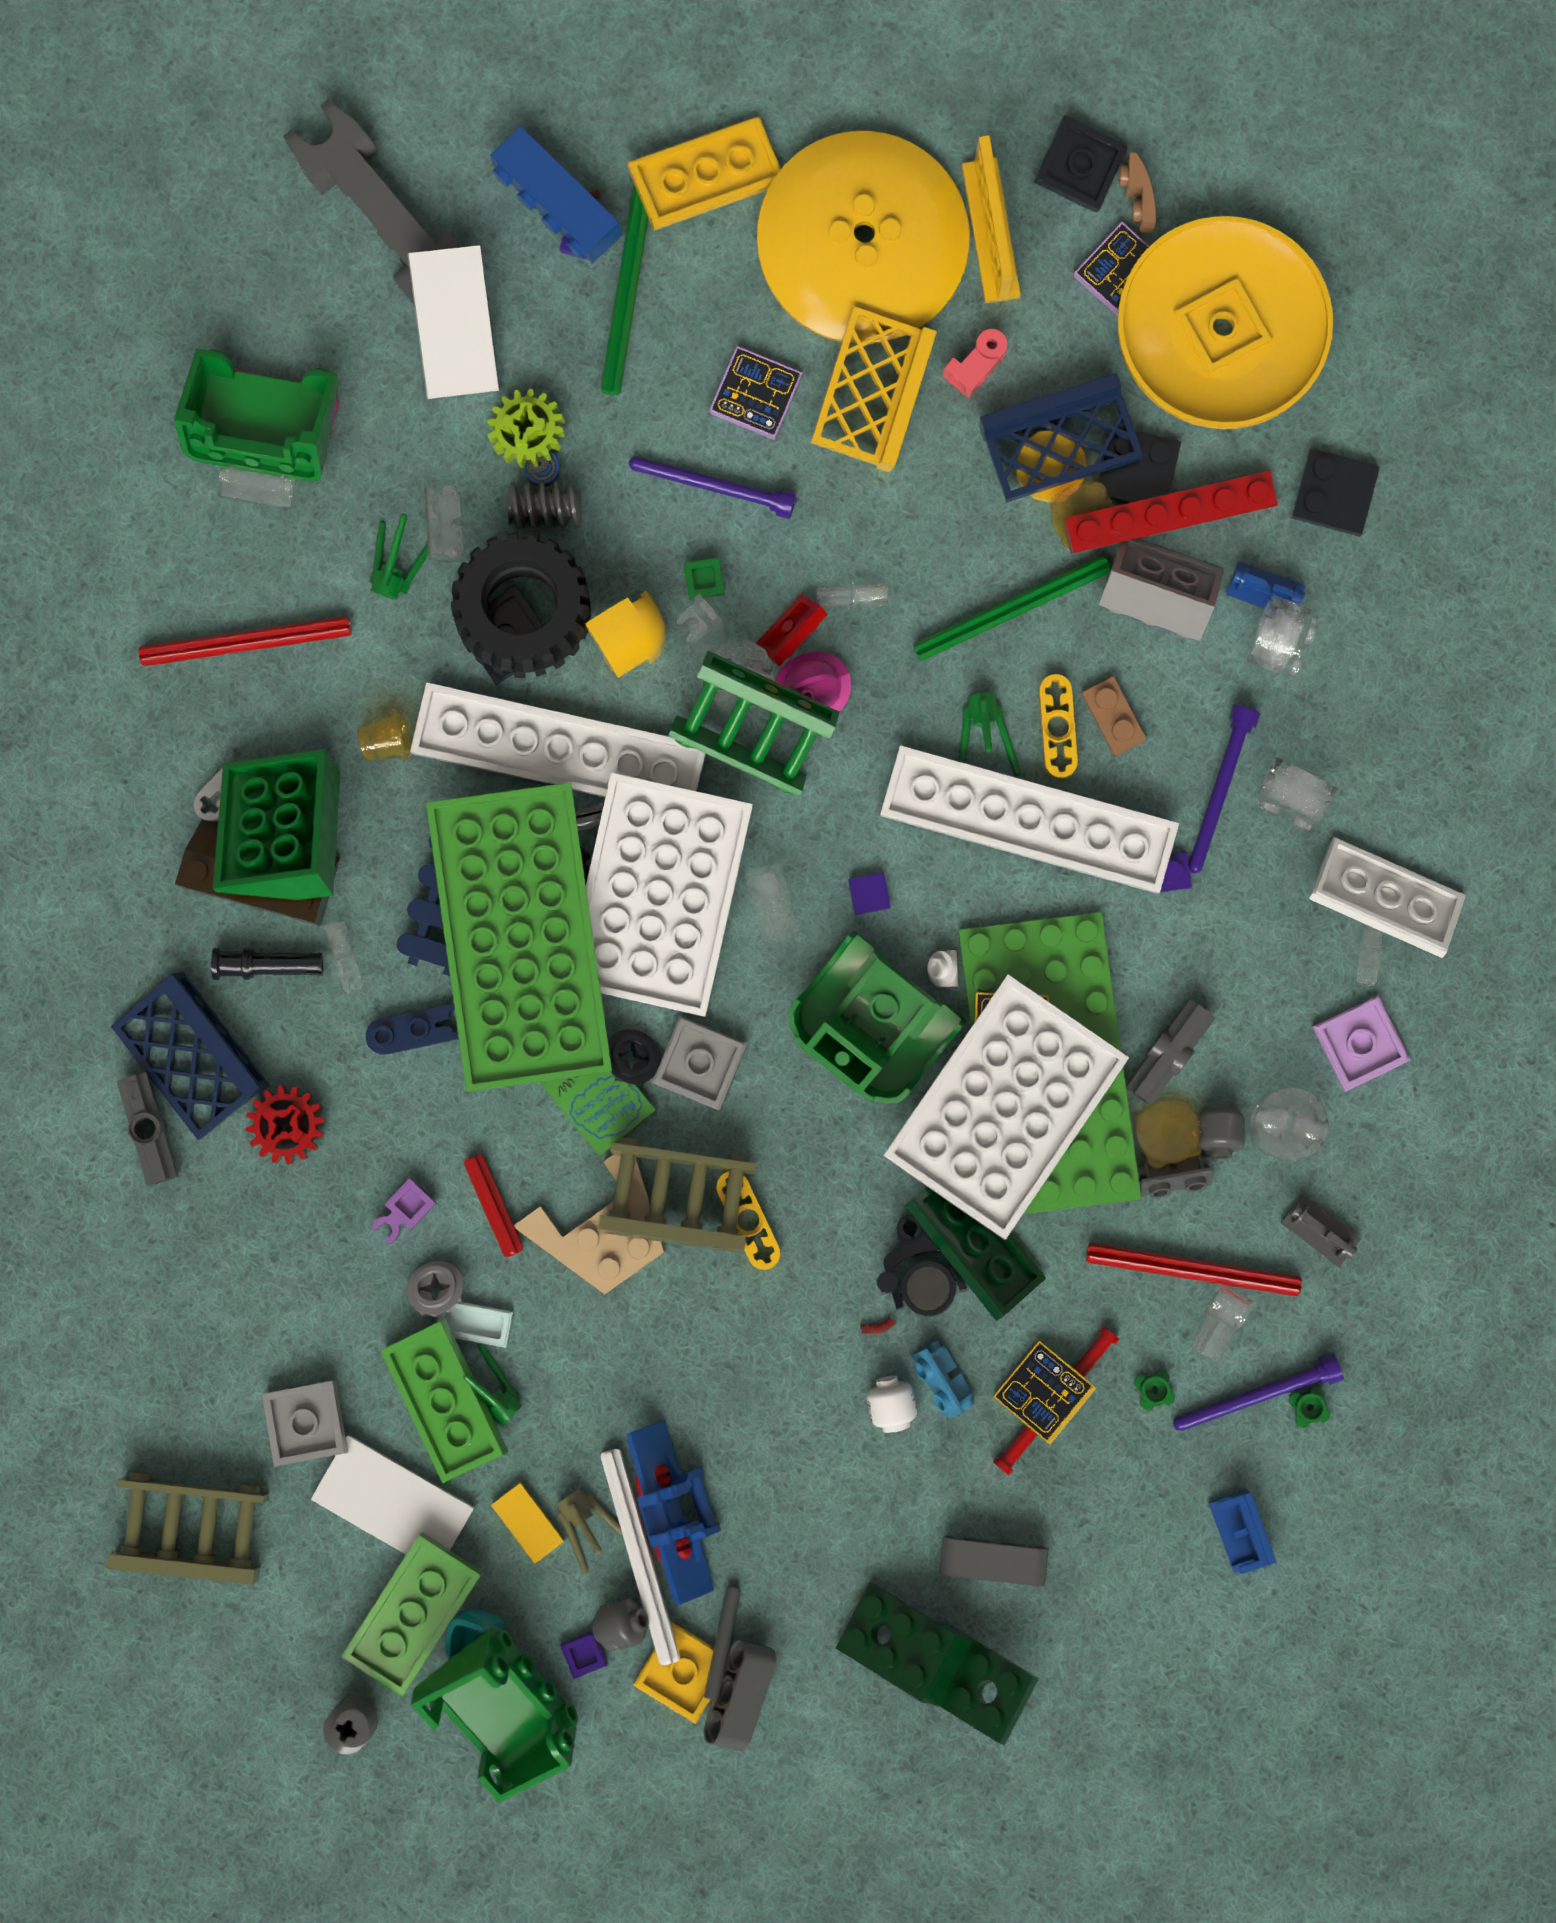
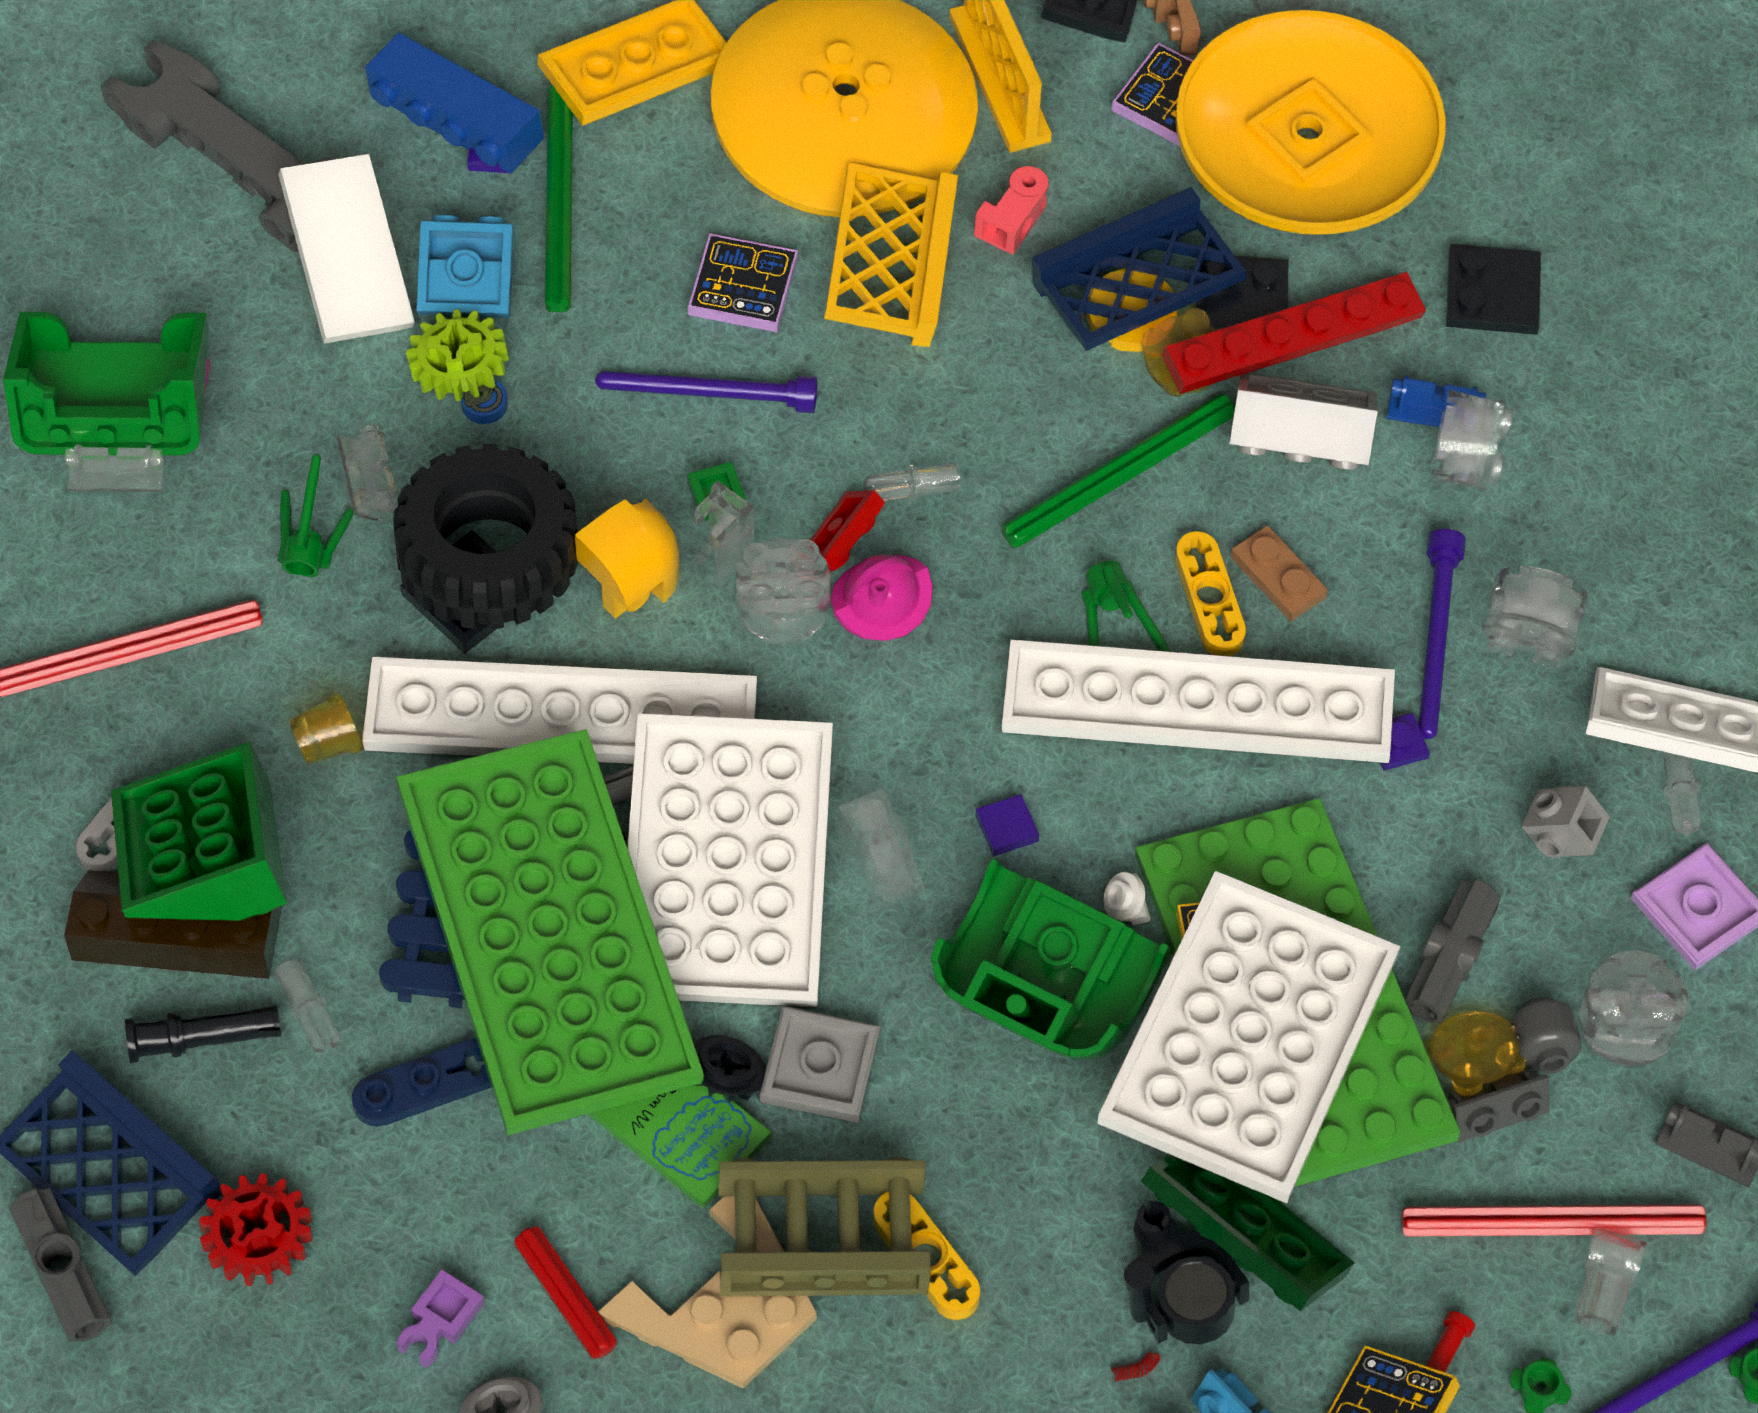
camera: 15 degrees left, 25 degrees down
(543, 349) = (465, 266): none -> dark azure plate
(544, 505) = (505, 431): dark grey piece -> none
(754, 690) = (803, 584): green fence -> none
(1276, 967) = (1565, 821): none -> light grey brick

